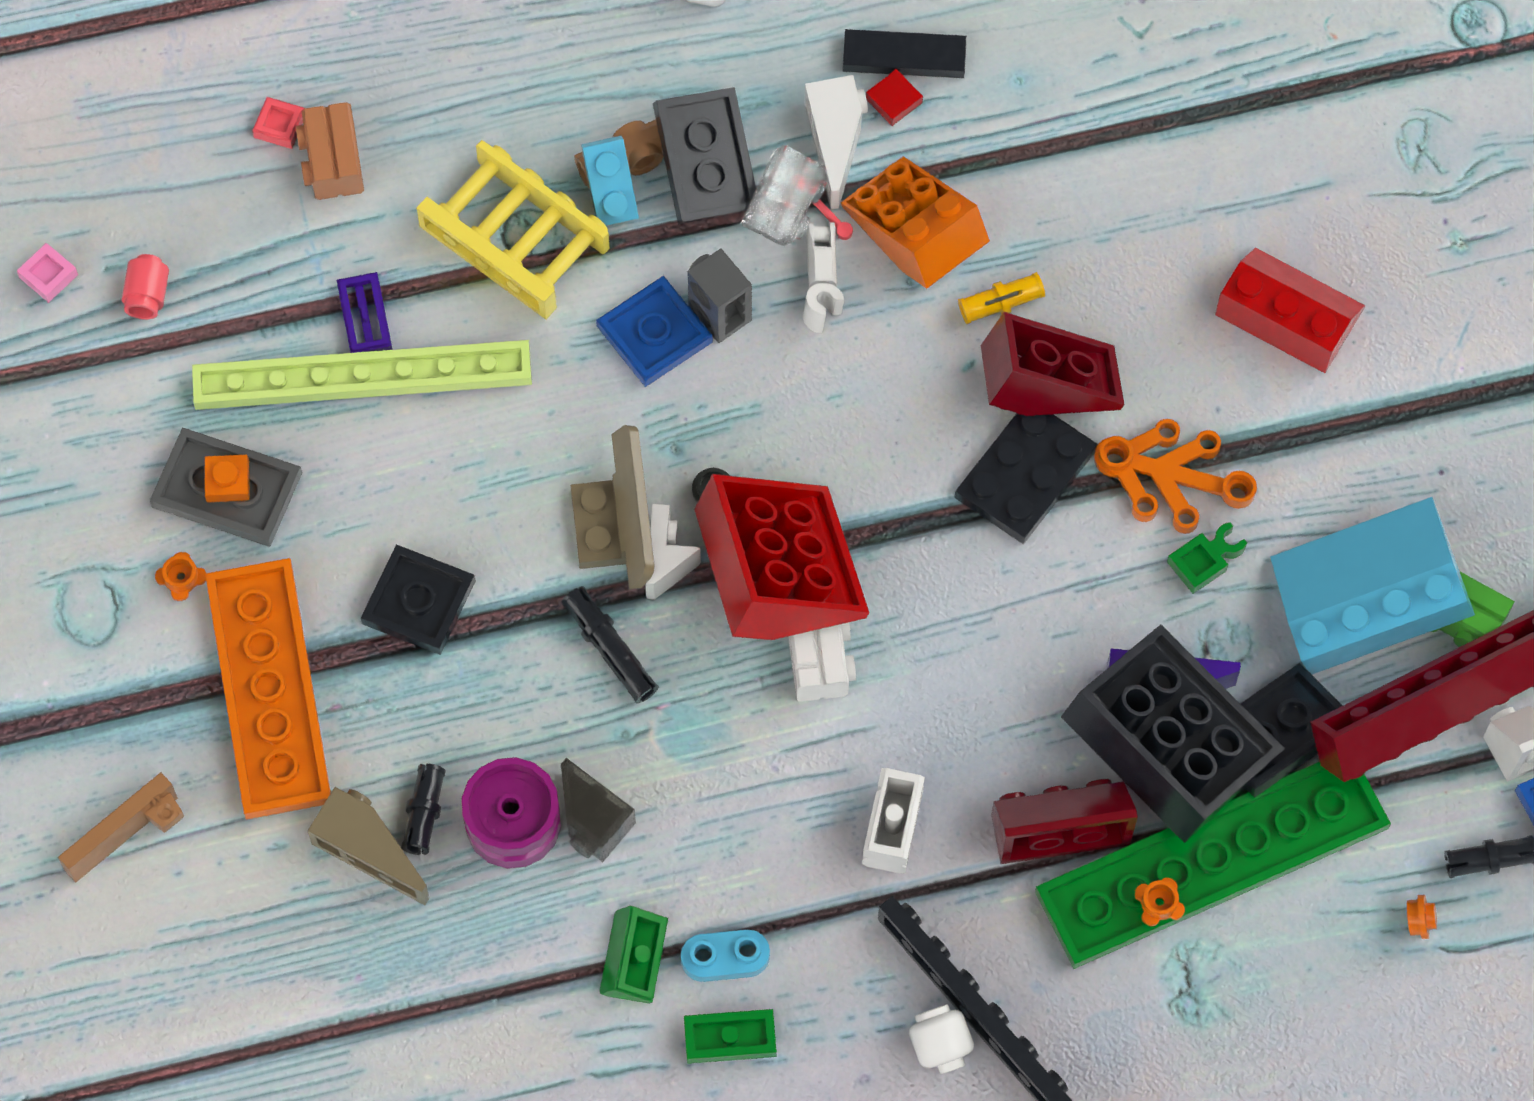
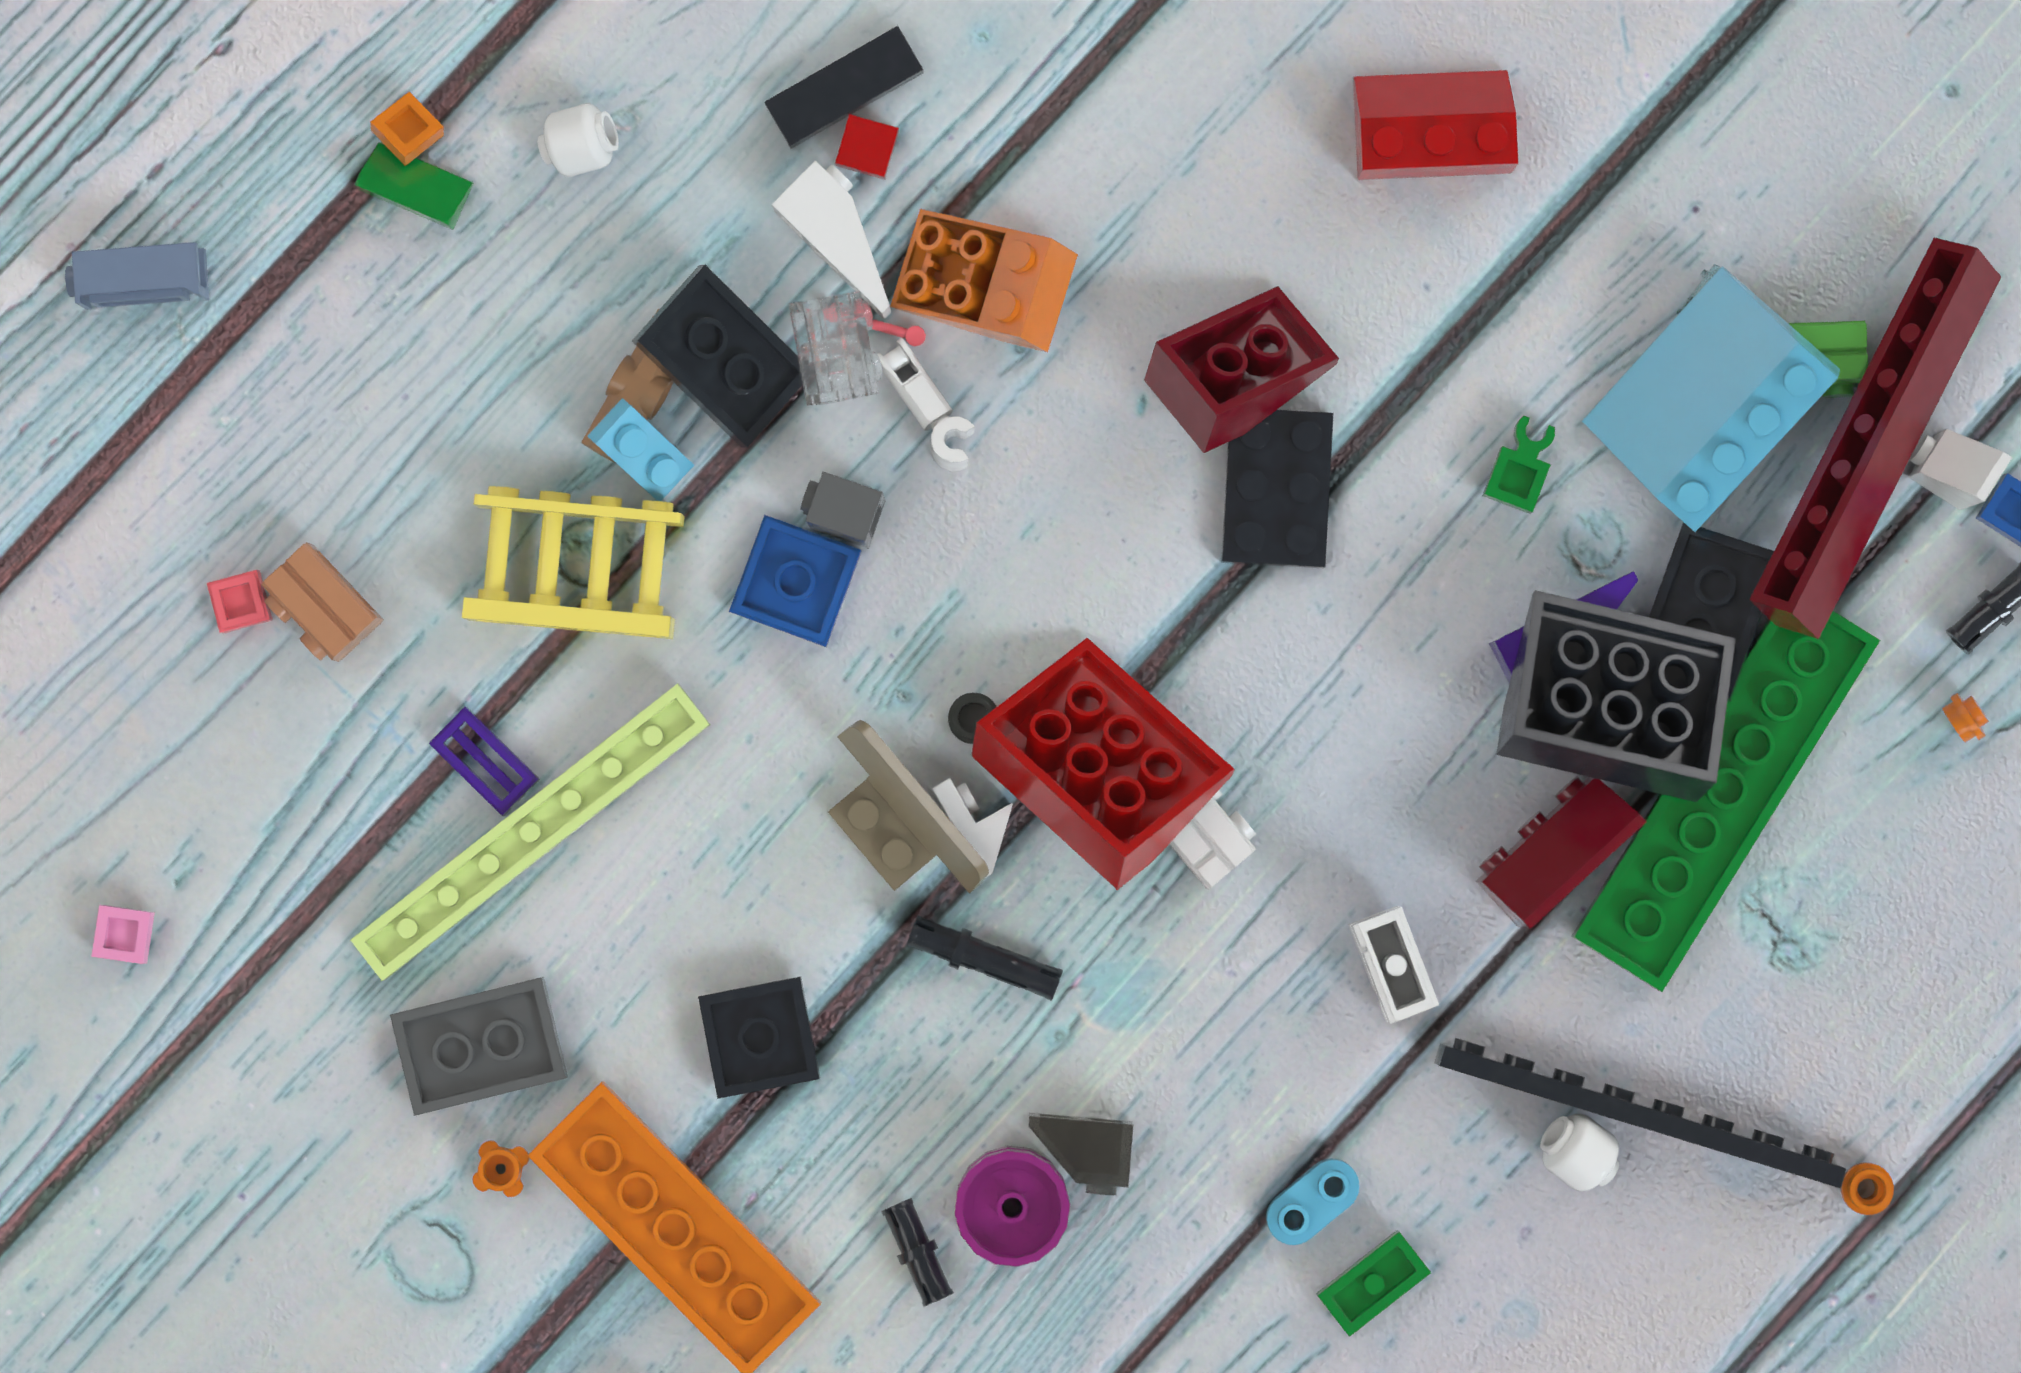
camera: 30 degrees left, 20 degrees up
(145, 286) = (237, 884): coral brick -> none
(227, 478) = (478, 1043): orange plate -> none
(358, 836) = (880, 1324): dark tan slope -> none
(633, 955) = (1222, 1260): green slope -> none
(1028, 289) = (1130, 310): yellow pin -> none
(1167, 891) = (1723, 877): orange plate -> none
(1168, 472) = (1421, 395): orange plant -> none

